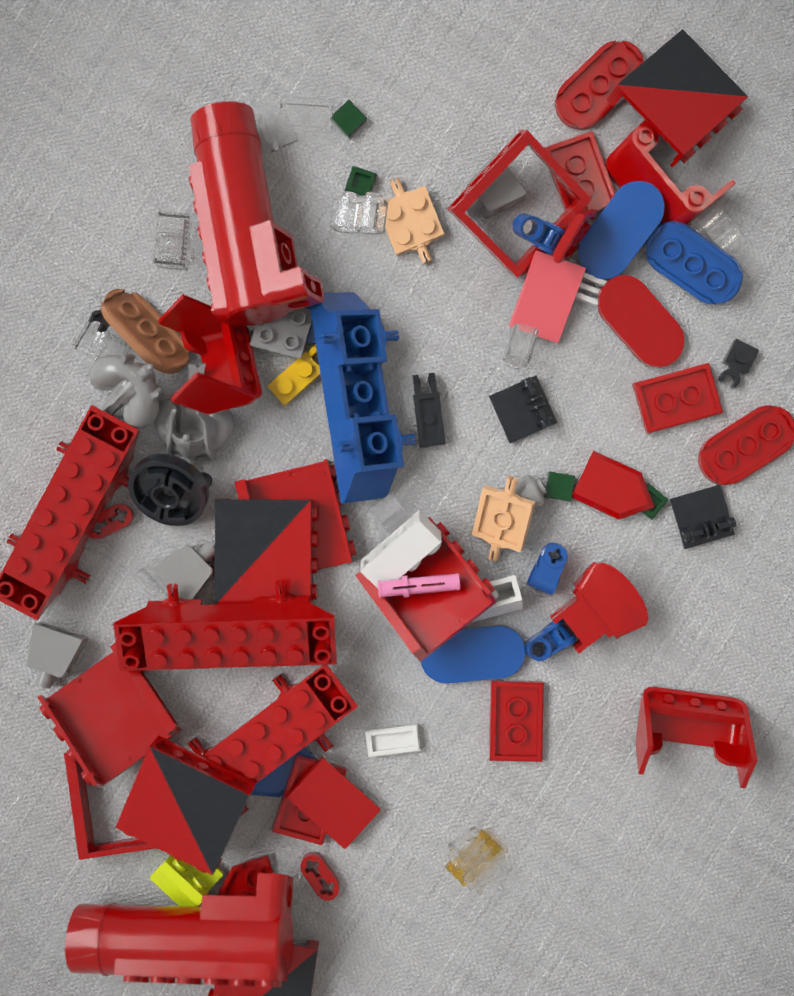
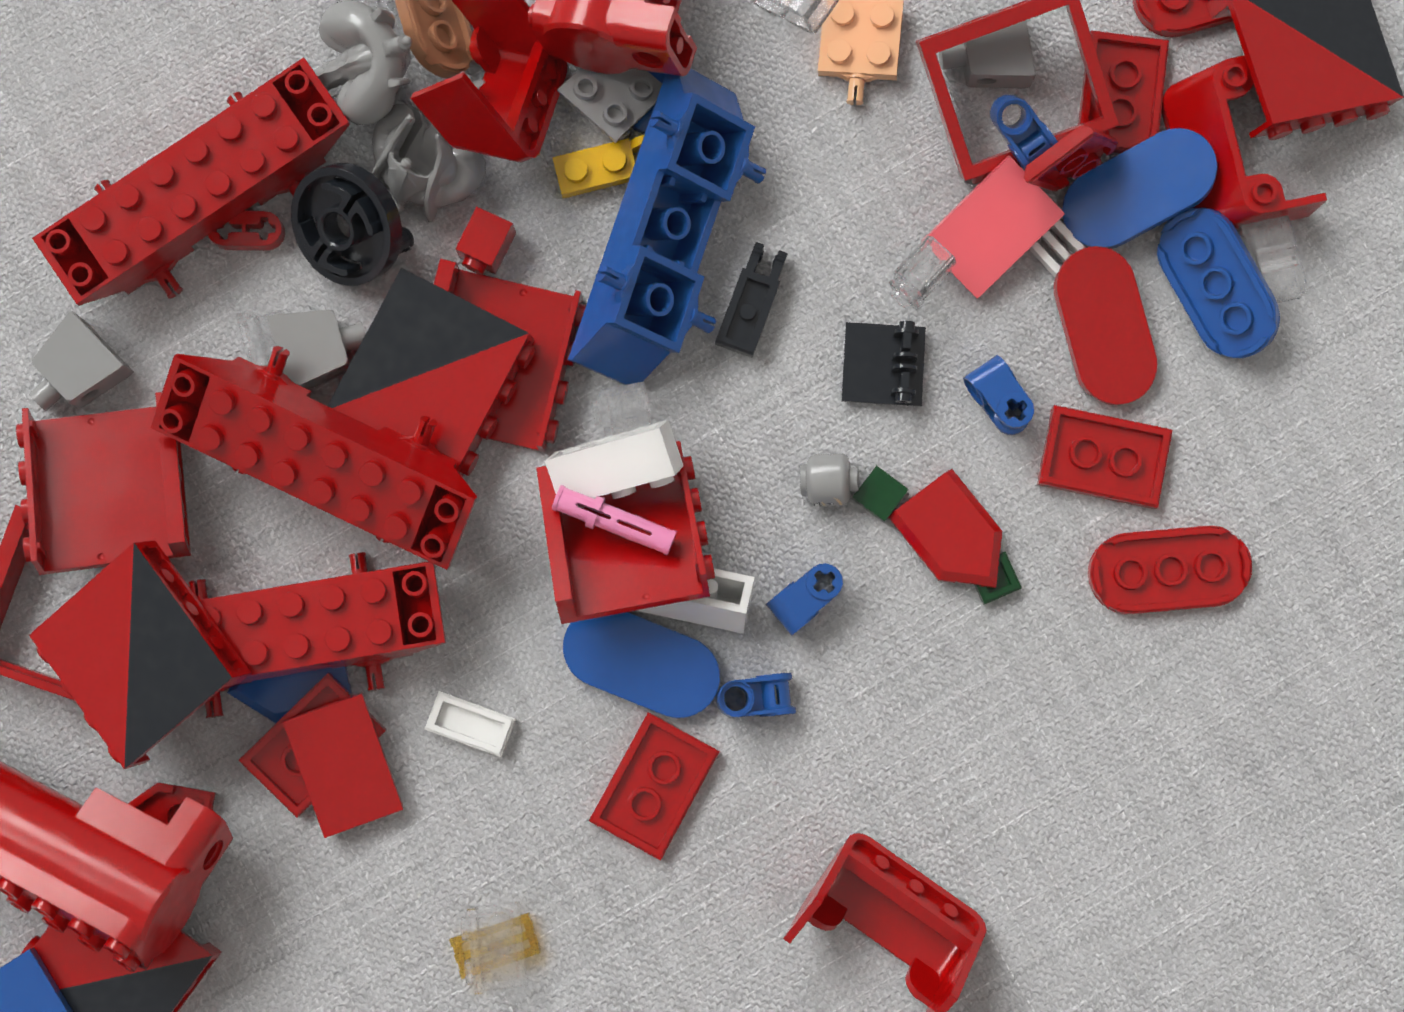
camera: 30 degrees right, 5 degrees down
(183, 881) = (81, 761): neon yellow bracket -> none
(254, 457) = (485, 242): none -> red brick
(324, 872) = (261, 862): red beam -> none
(503, 518) = (778, 494): light nougat plate -> none
(595, 391) = (997, 391): none -> blue piece
(602, 605) = (856, 681): red piece -> none
(702, 516) = (1057, 636): black hinge -> none
(739, 359) = (1215, 447): black plate -> none

